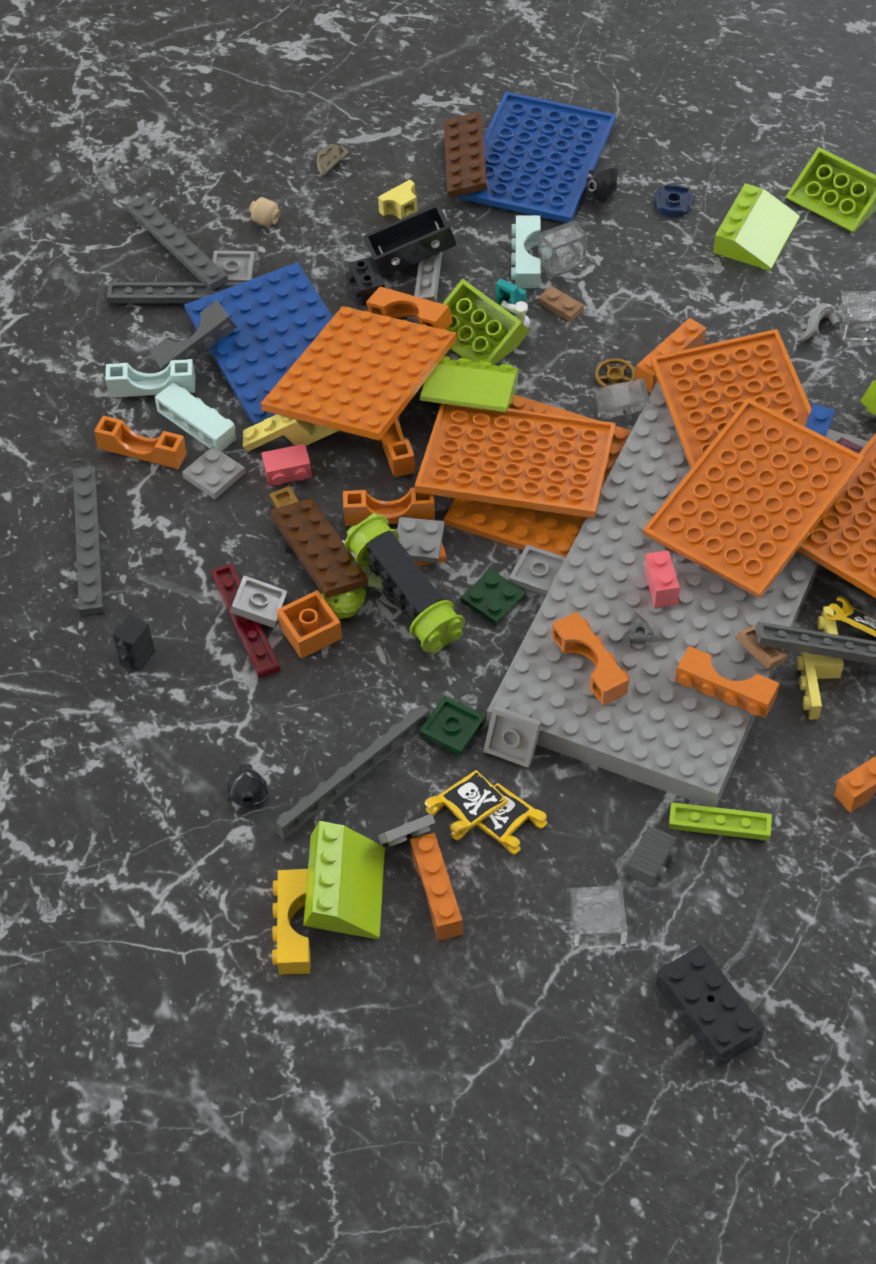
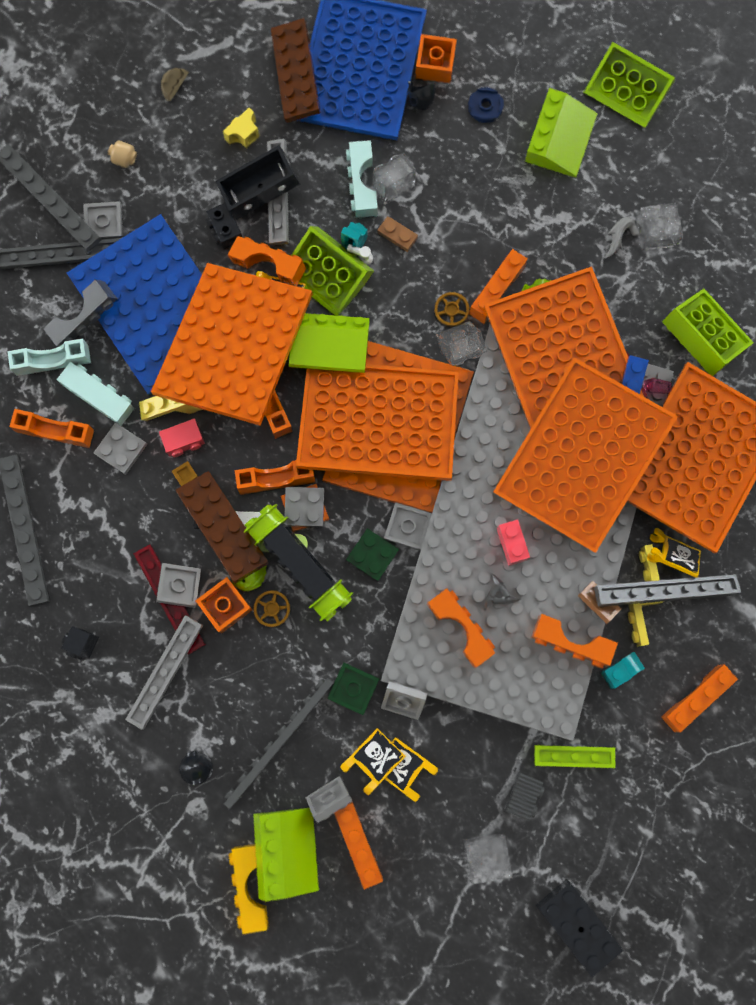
camera: 10 degrees left, 25 degrees up
(226, 686) = (164, 672): none -> light grey plate
(365, 639) = (272, 608): none -> pearl gold wheel
(623, 152) = (435, 58): none -> orange brick
(786, 737) = (622, 670): none -> teal arch

